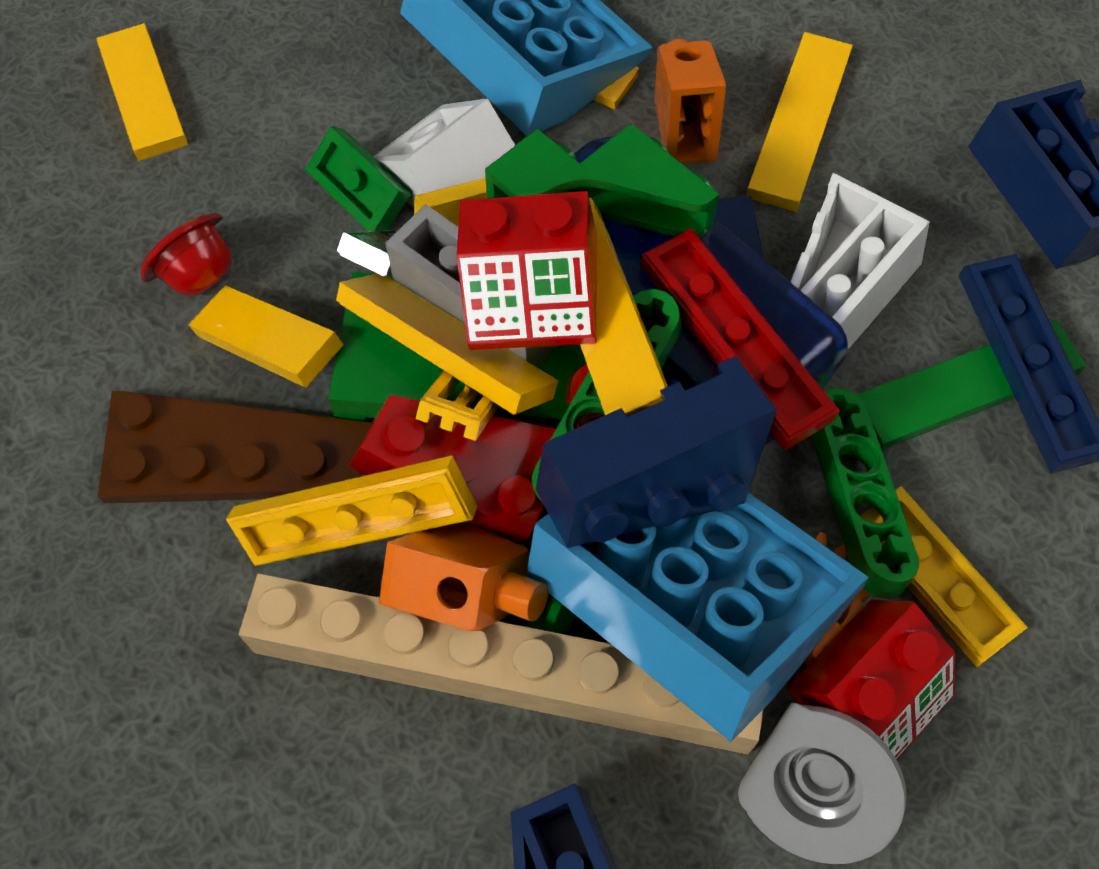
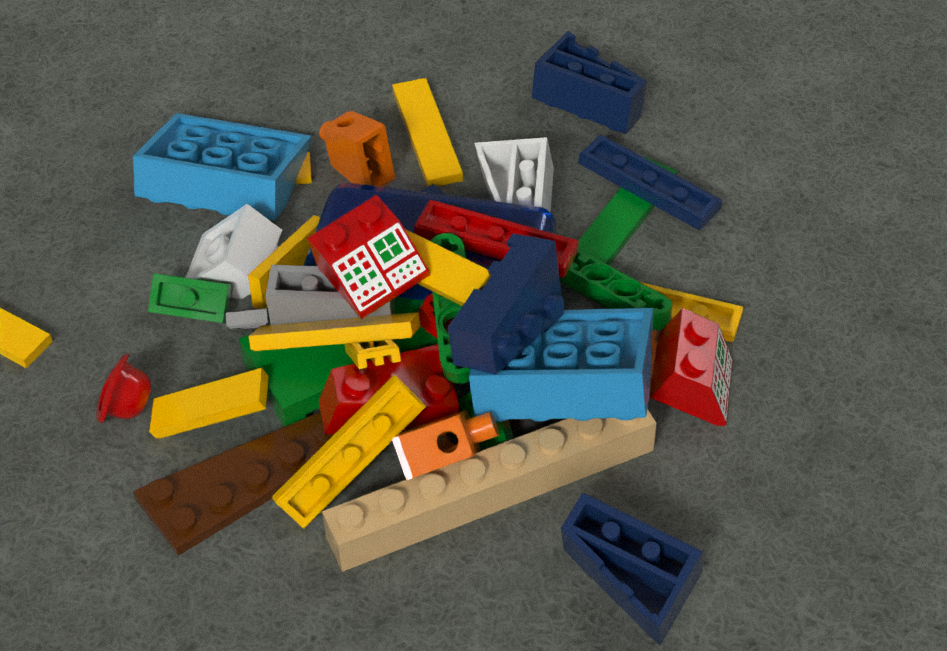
camera: 35 degrees left, 15 degrees down
(626, 177) = (401, 188): green arch -> none
(825, 787) = (703, 427): light grey hat -> none

